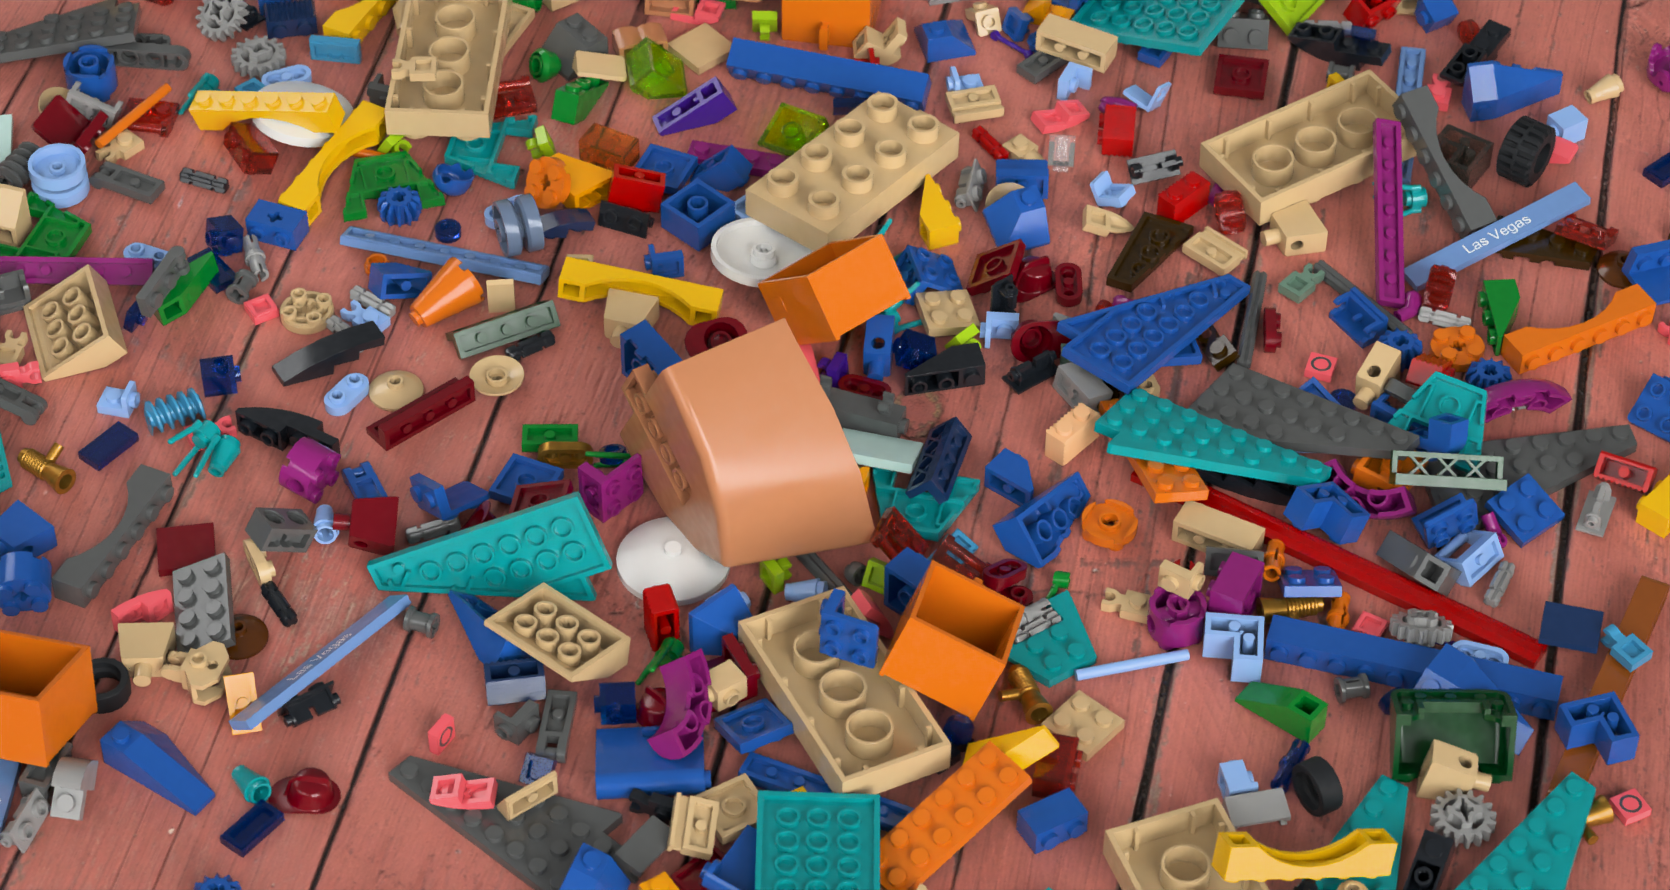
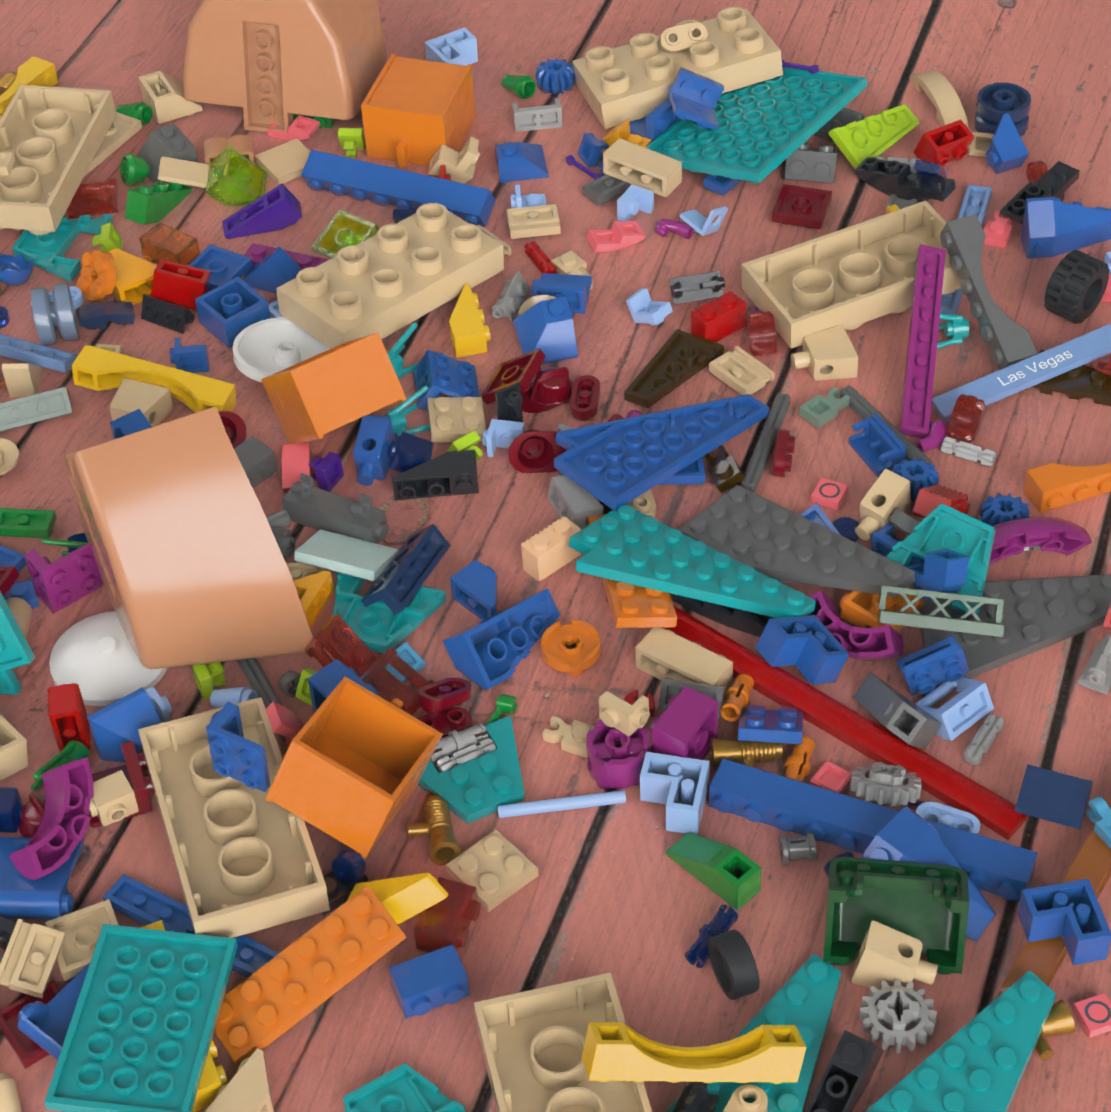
camera: 10 degrees right, 0 degrees up
(531, 345) = (36, 431): black axle -> none
(564, 454) = (28, 538): pearl gold plate -> none
(753, 726) = (133, 846): blue plate -> none
(863, 386) = (351, 488): dark red plate -> none
(985, 17) = (562, 143): tan bracket -> none
(1032, 373) = (522, 485): black hinge -> none
(1061, 152) = (606, 268): clear slope -> none
(1104, 222) = (635, 337): tan plate -> none
(1117, 131) = (667, 251): red brick -> none
(1235, 779) = (646, 954): light blue brick -> none
(1257, 808) = (660, 985): light grey hinge -> none
(1448, 339) = (984, 471): orange plate -> none
(1465, 153) = (1013, 288): clear smoke brick -> none
(1491, 524) = (985, 675): magenta arm -> none
(1500, 308) = (1028, 444): green slope -> none
(1525, 510) = (1022, 659): blue plate -> none

